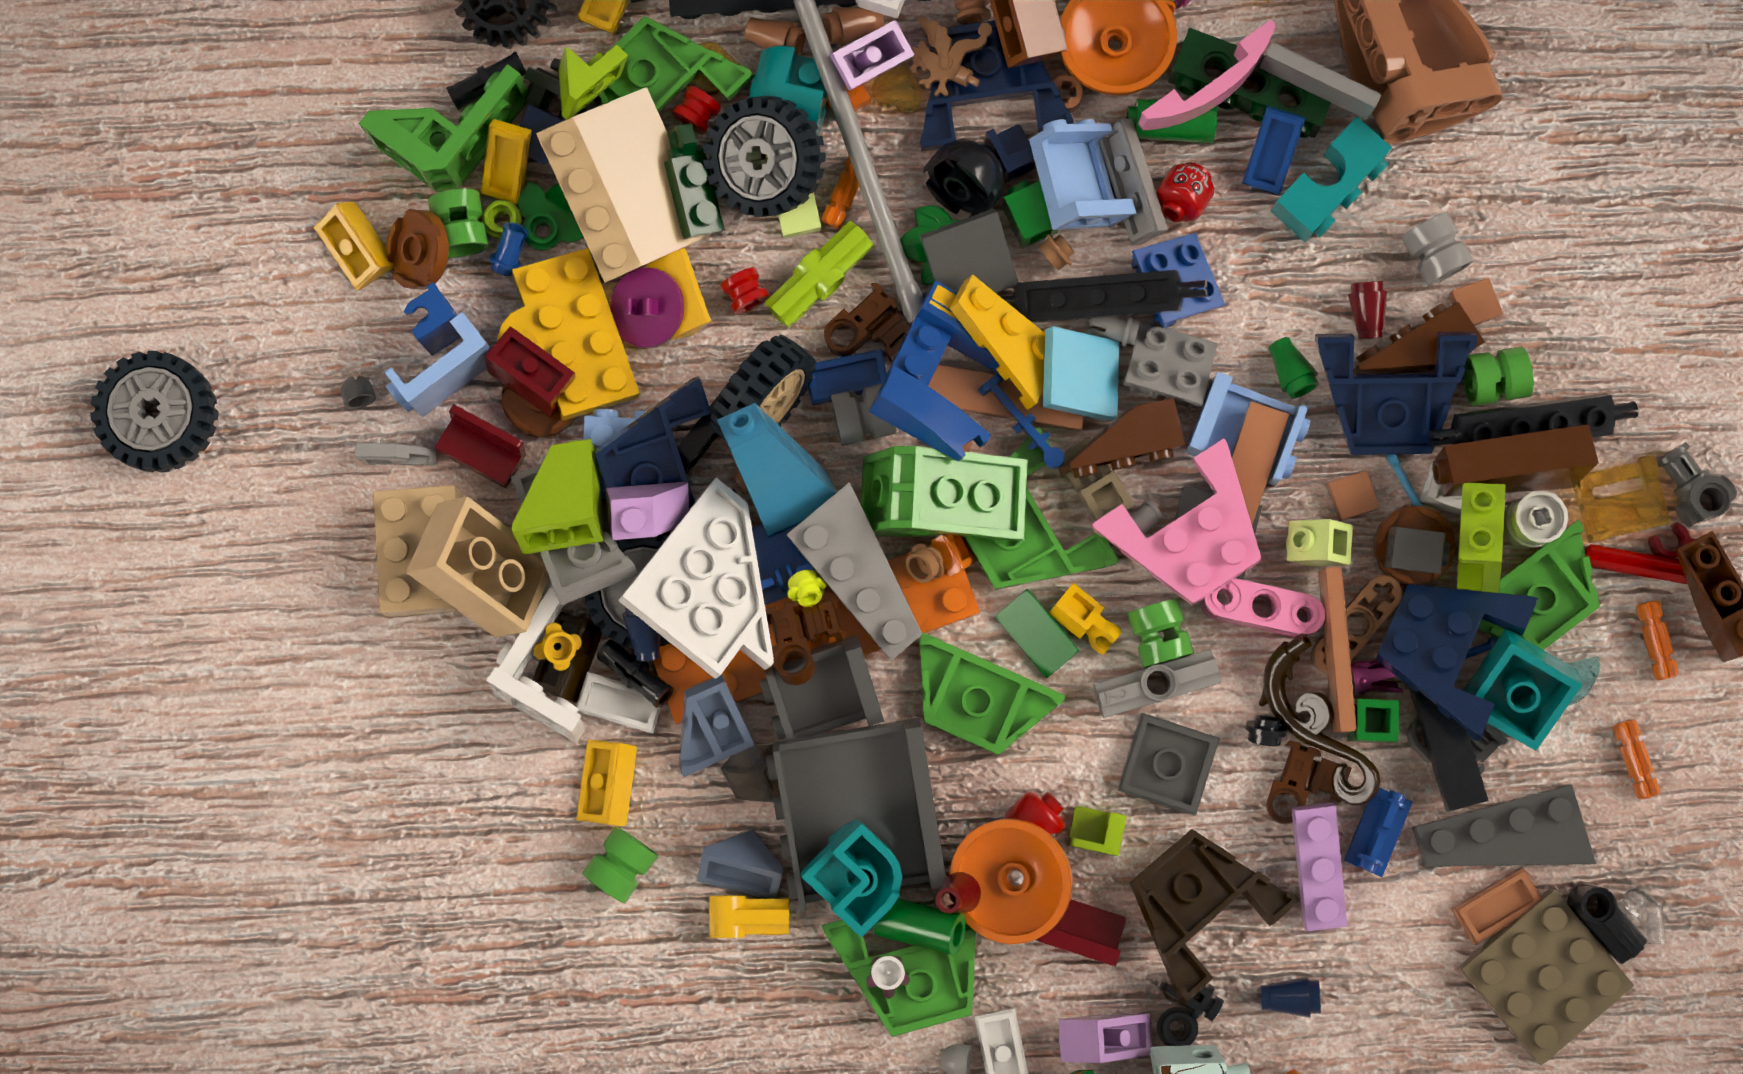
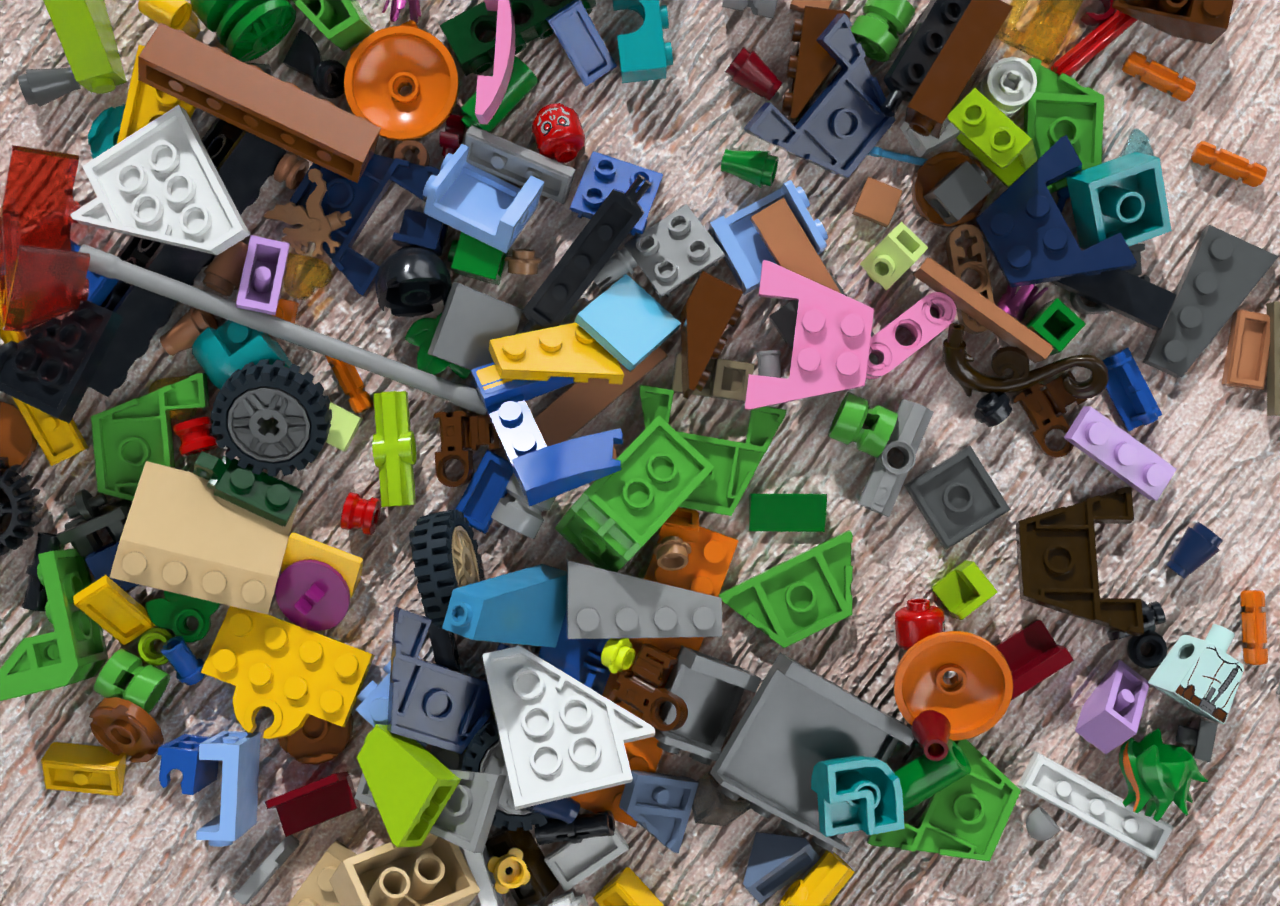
camera: 45 degrees left, 5 degrees up
(357, 392) = (198, 859): dark grey hinge -> none
(529, 370) = (285, 724): dark red panel -> none
(584, 81) = (104, 505): lime slope -> none
(645, 509) = (463, 727): lavender slope -> none
(887, 974) = (946, 832): white piece -> none
(1053, 456) = (672, 393): blue piece -> none
(1082, 615) = (801, 471): yellow plate -> none
(1112, 111) = (453, 135): none -> dark red piece

